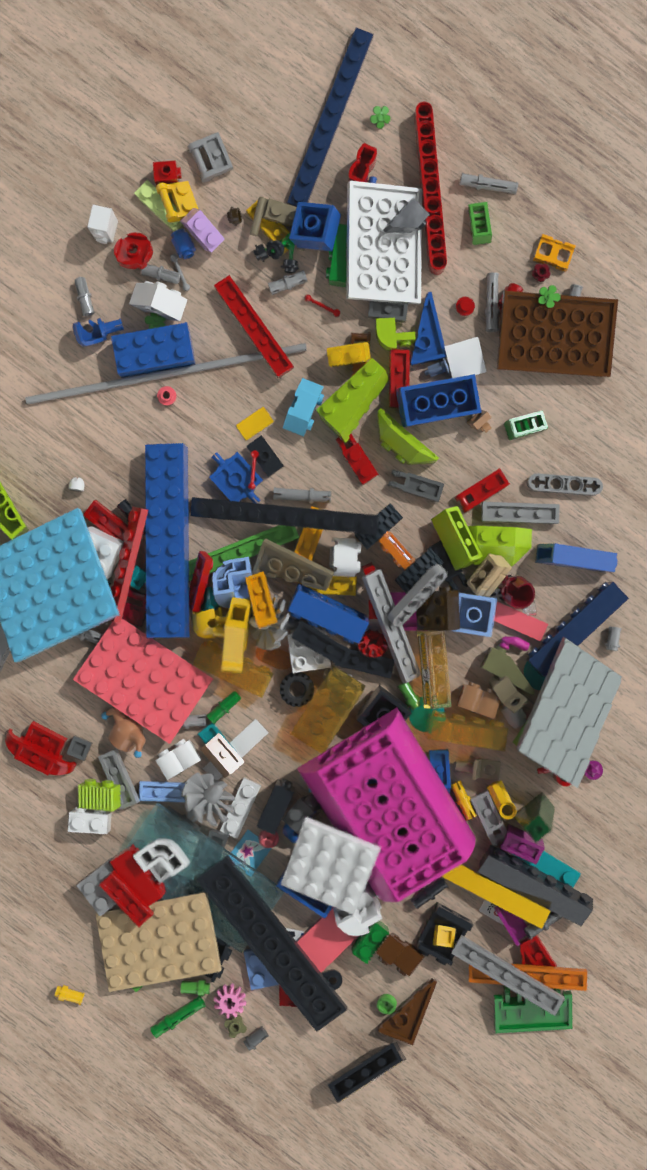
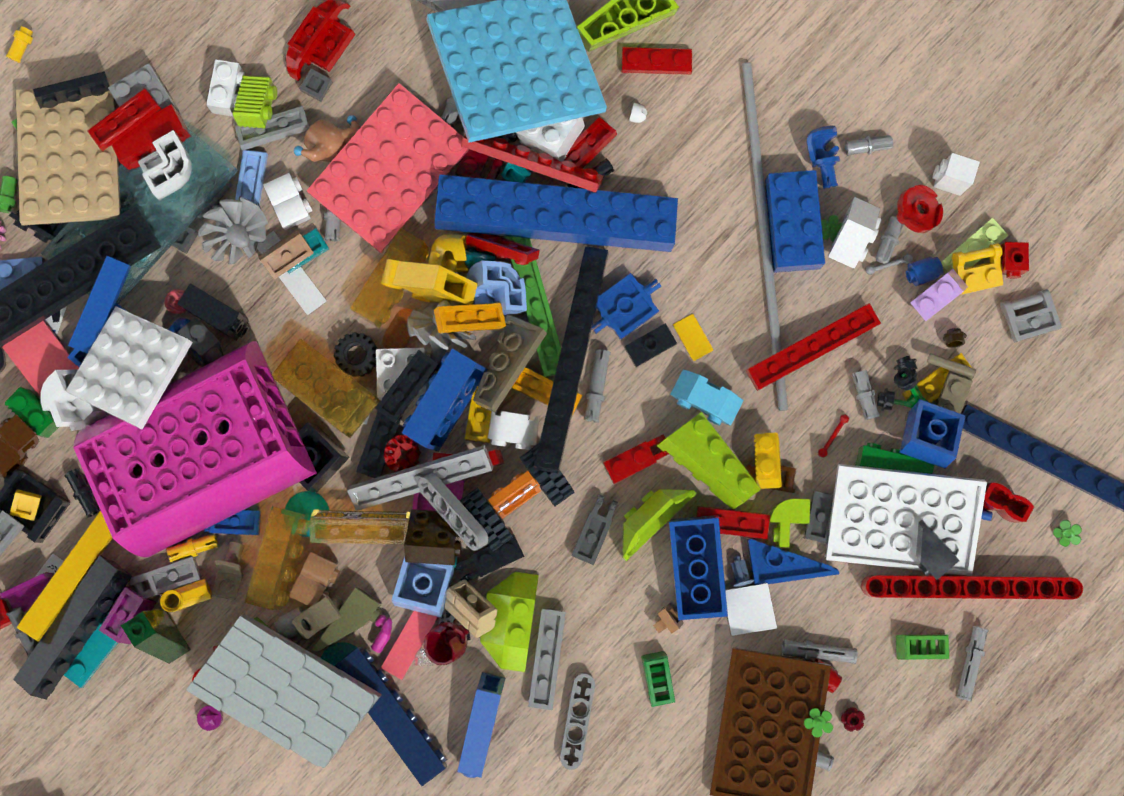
camera: 90 degrees right, 5 degrees down
(31, 473) = (656, 60): none -> red plate
(106, 945) = (71, 90): none -> black plate
(171, 399) = (731, 237): coral plate -> none
(224, 707) = (345, 263): green axle -> none
(242, 804) = (219, 271): white plate -> none
(250, 850) = (164, 277): sticker -> none
(254, 454) = (652, 331): red hinge -> none
(280, 897) = (99, 304): none -> blue tile
(411, 698) = (331, 494): bright green animal -> none
(456, 538) = (522, 572): lime brick -> none
(465, 306) = (817, 616): red plate -> none
(482, 490) = (580, 614): red plate -> none
(552, 258) = (869, 735): light orange piece -> none
(613, 639) = (373, 762): light grey pin -> none

